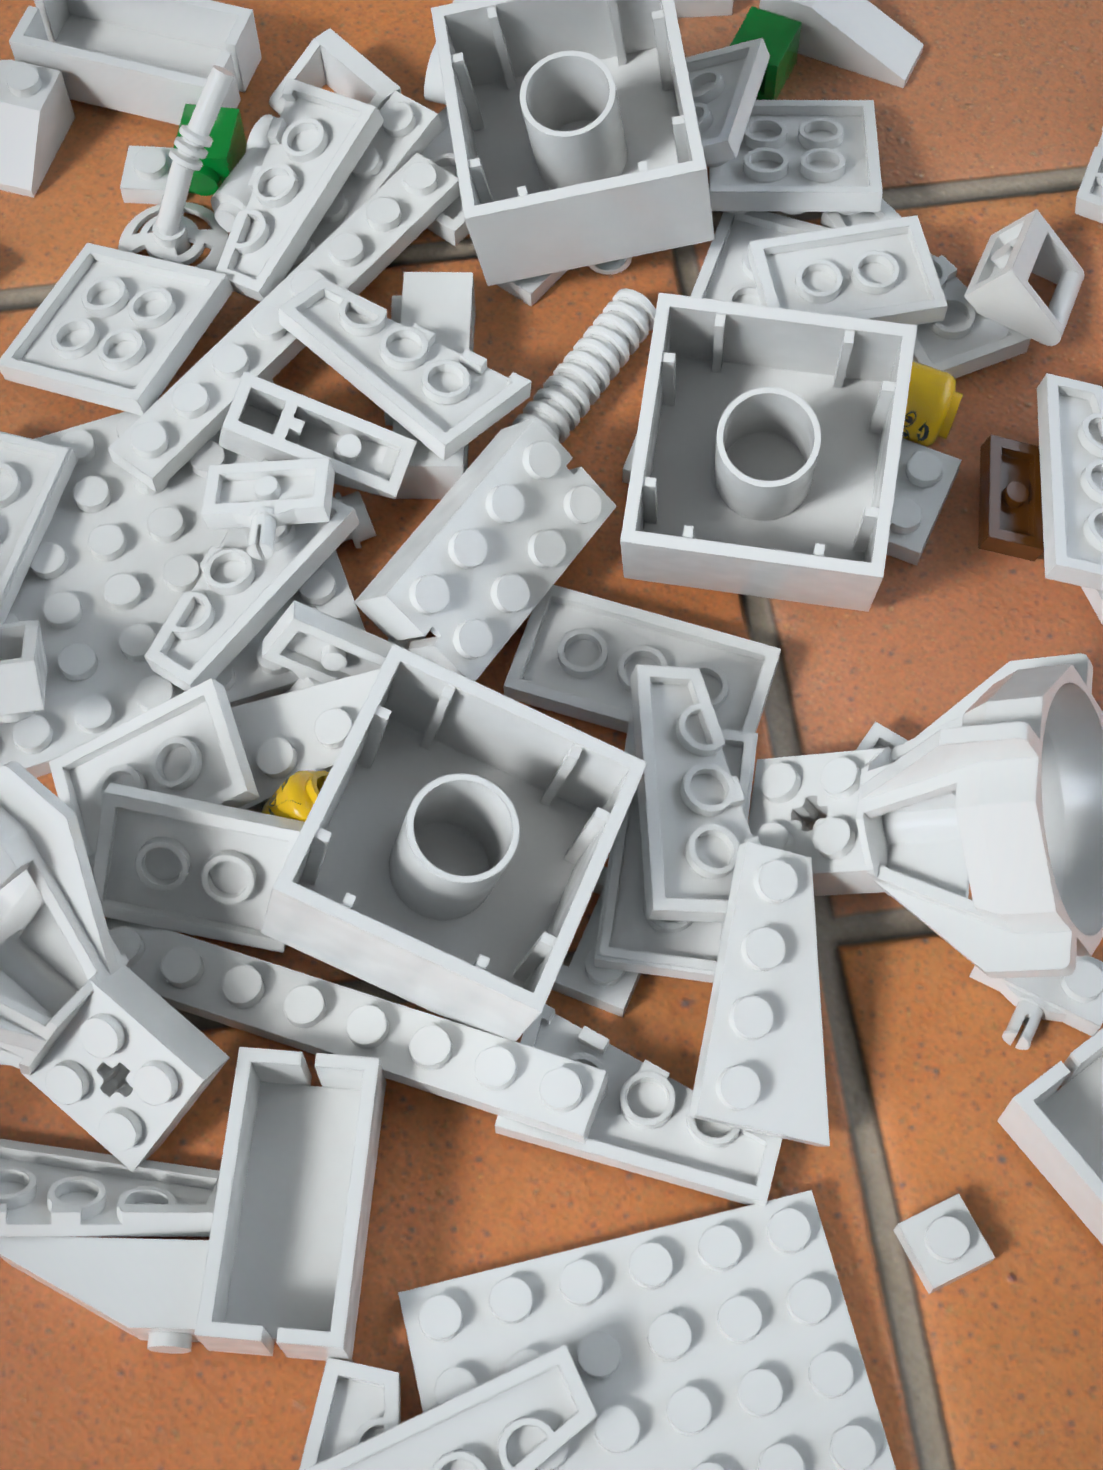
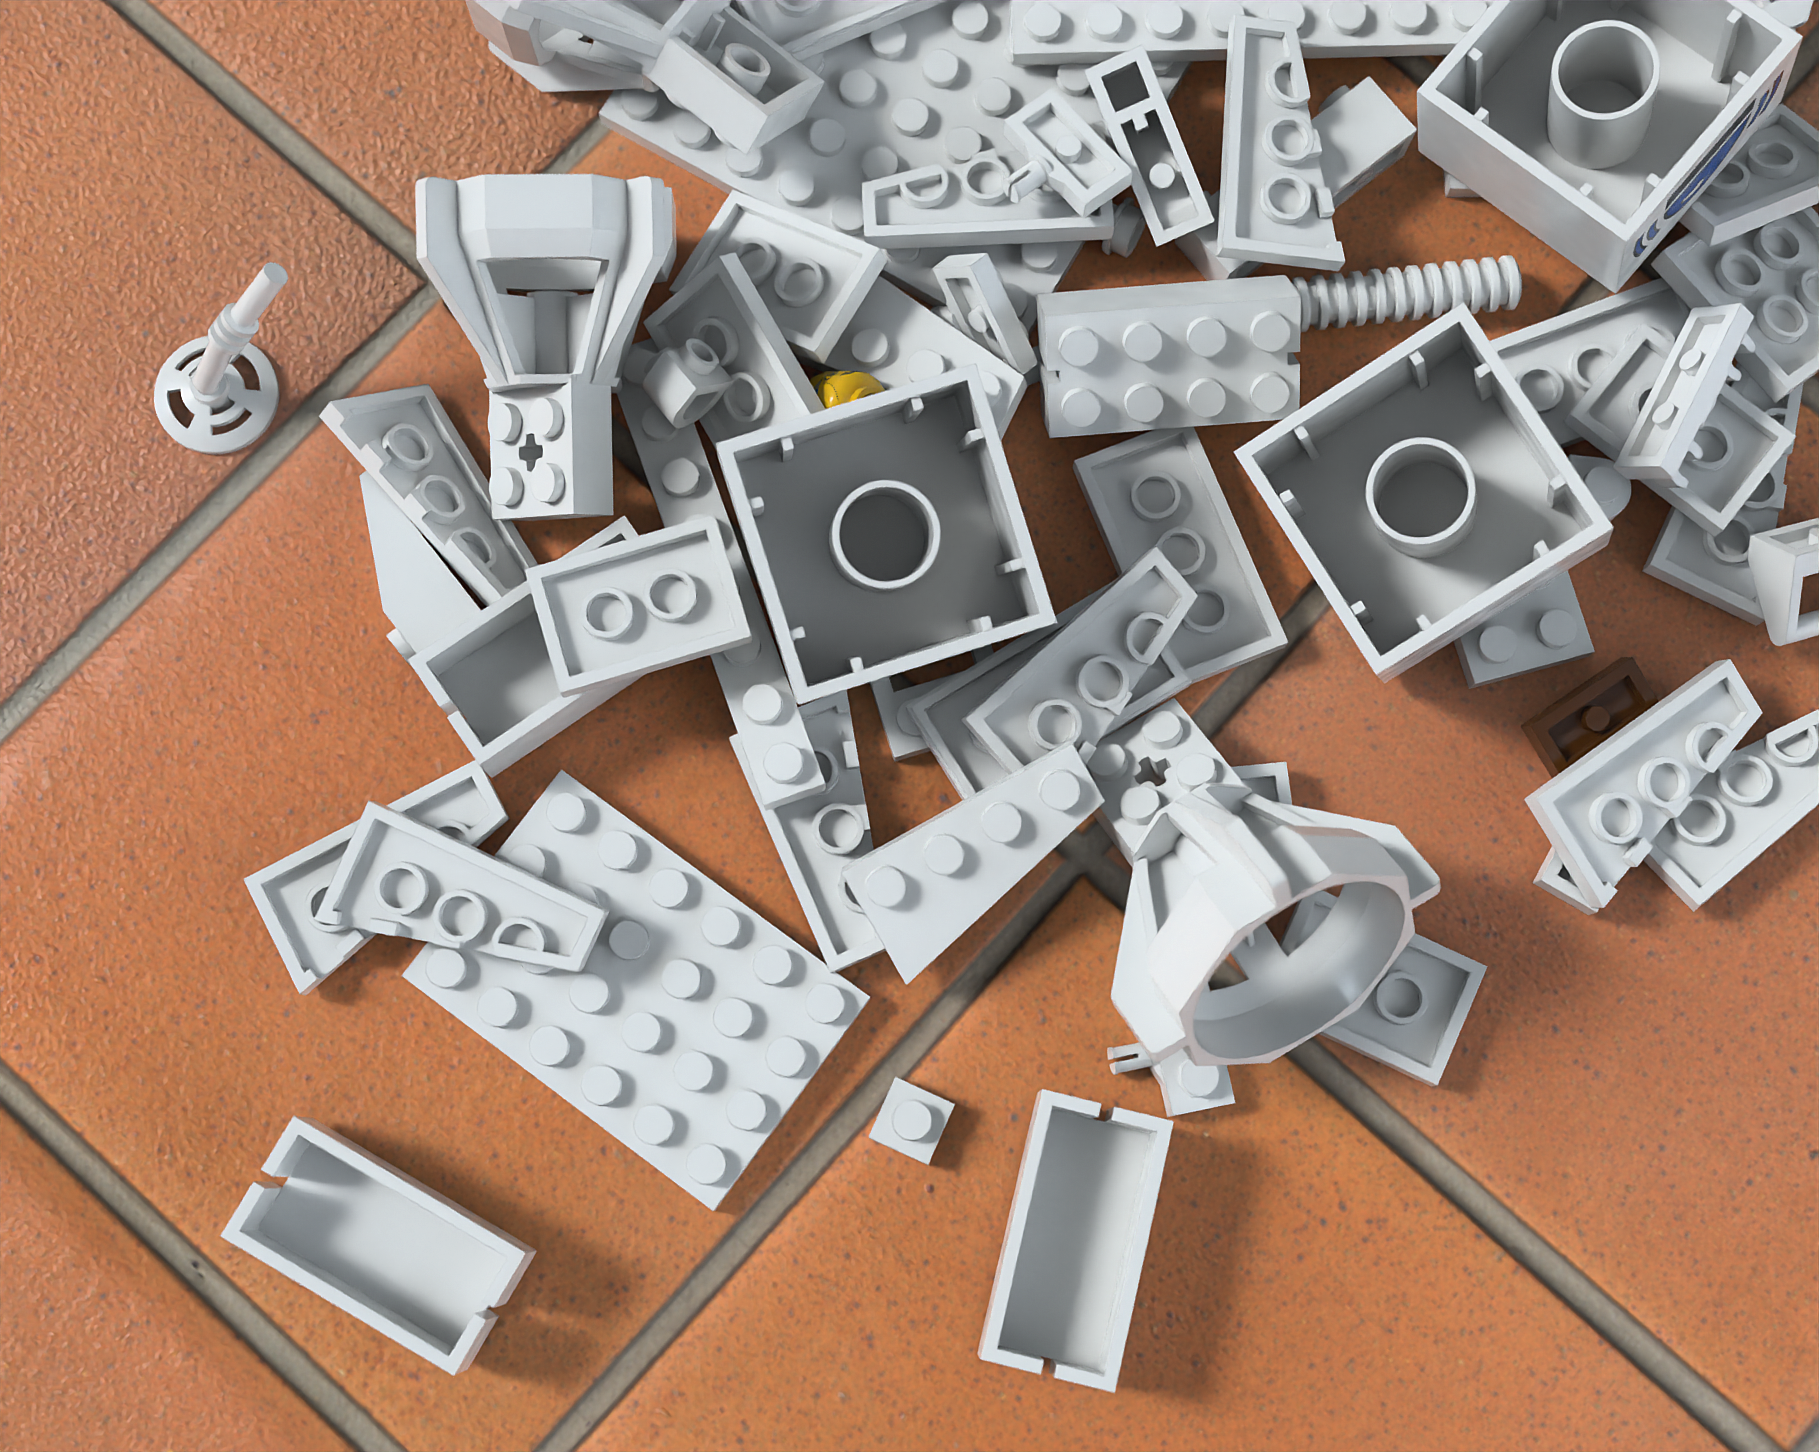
camera: 45 degrees right, 15 degrees up
(172, 912) = (685, 381): none -> white plate
(329, 1093) = (638, 606): none -> white plate
(831, 246) = (1686, 394): none -> white plate
(930, 404) = (1618, 579): yellow head -> none

